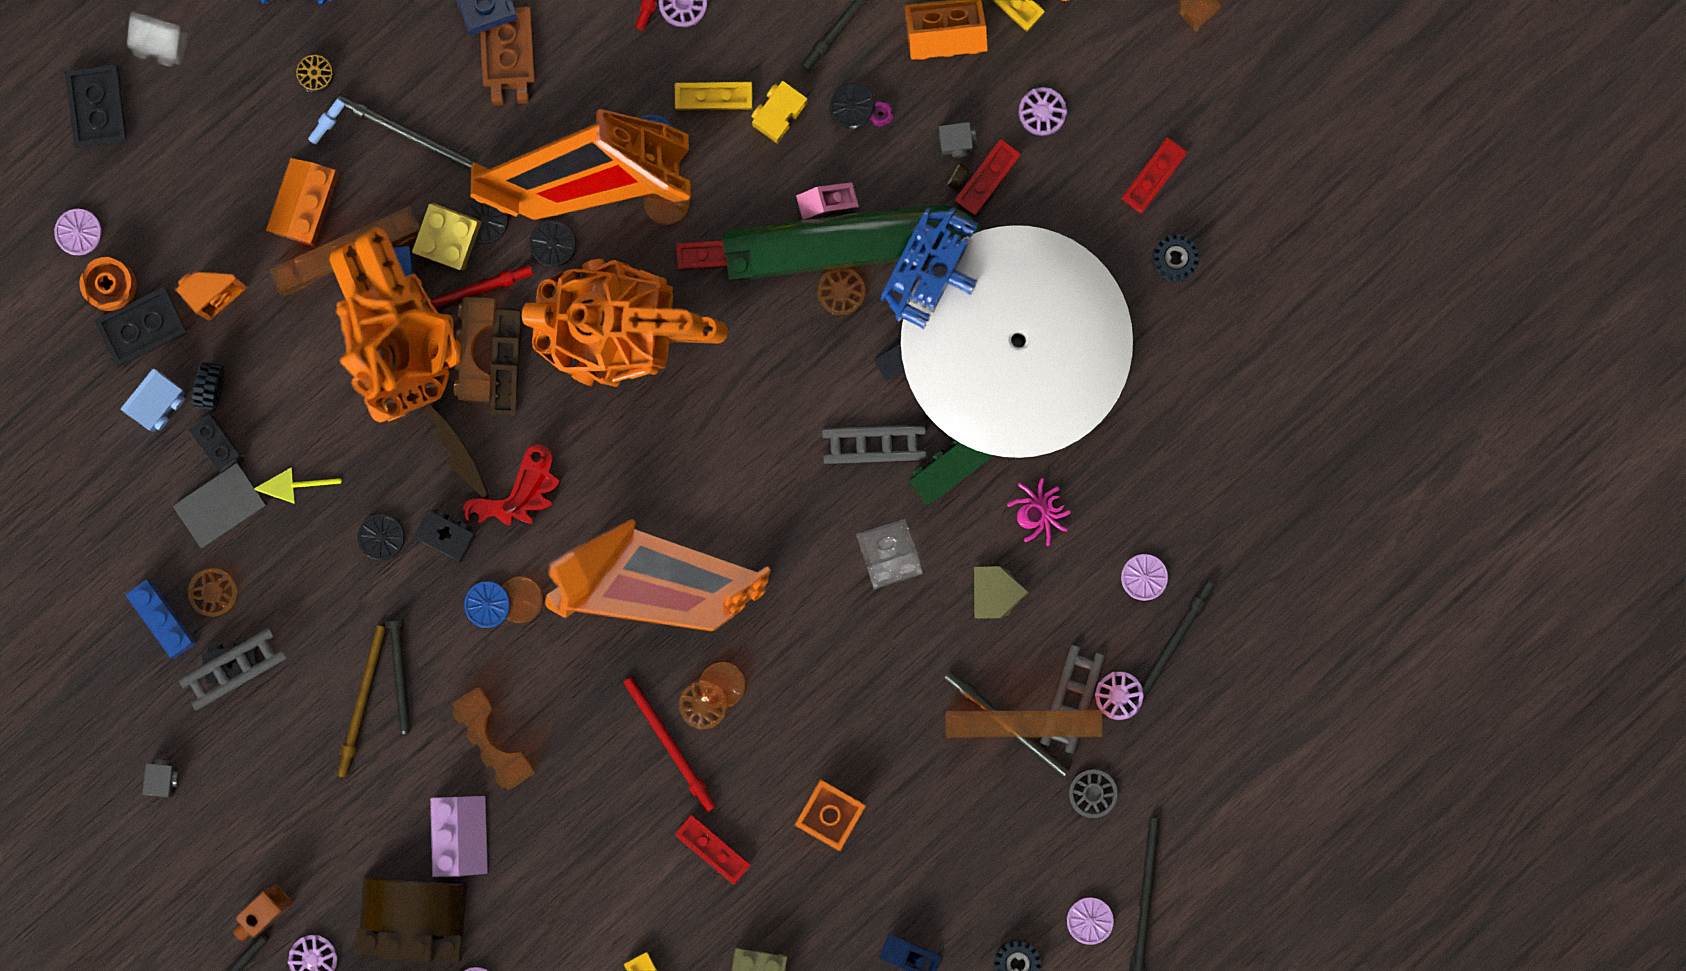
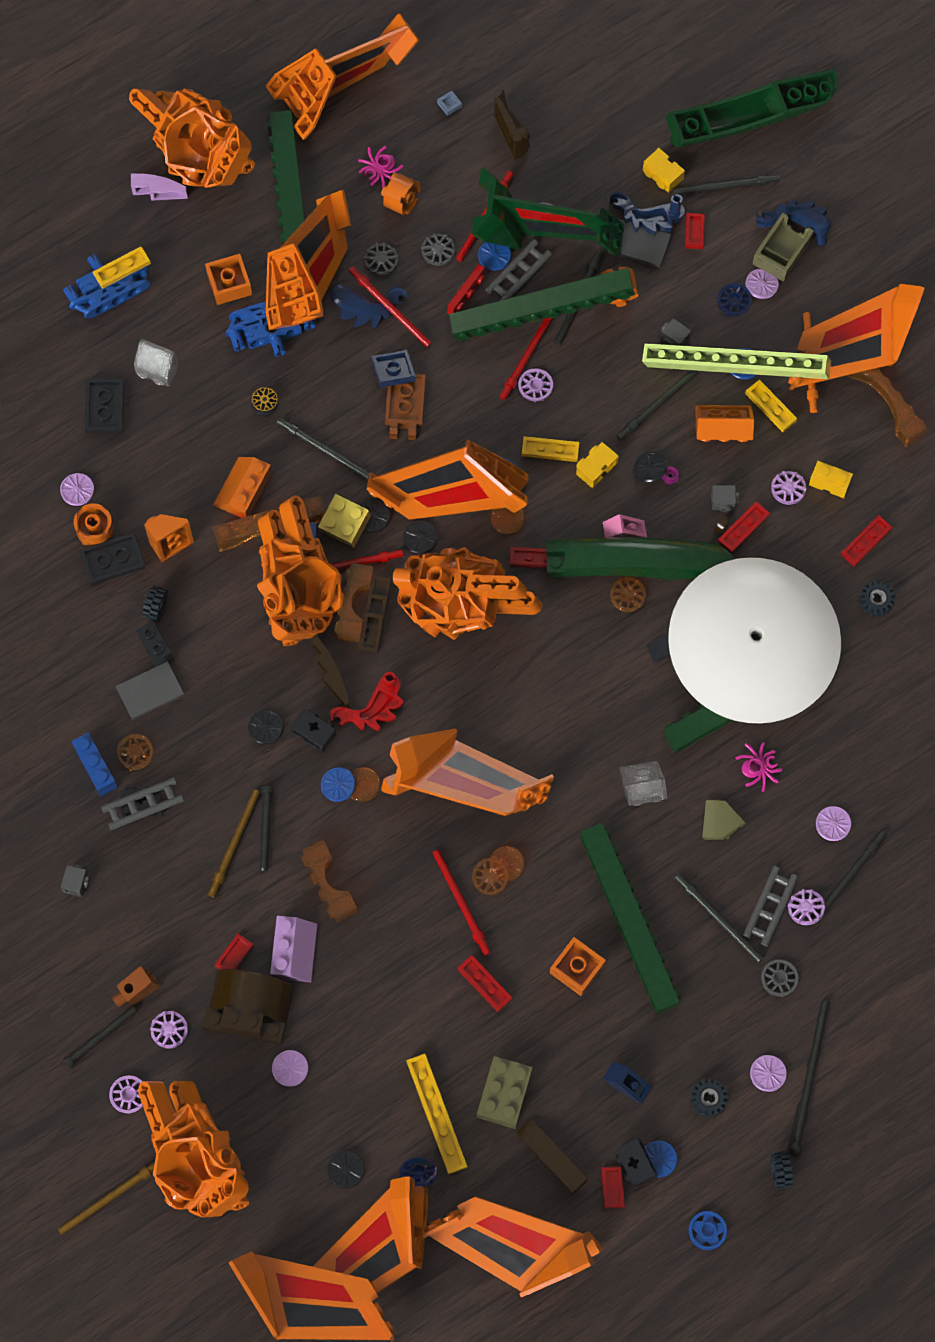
camera: 10 degrees right, 15 degrees down
(154, 401) = (114, 608): light blue slope -> none
(282, 485) = (198, 682): neon yellow piece -> none
(327, 121) = (268, 434): light blue bar -> none
(382, 850) = (234, 953): none -> red tile
(862, 455) = (649, 712): dark grey bar -> none
(890, 739) = (629, 918): none -> dark green brick
(915, 258) = (703, 564): blue piece -> none
(1024, 723) = (760, 918): clear orange arch -> none
(1098, 95) = (830, 479): none -> yellow brick

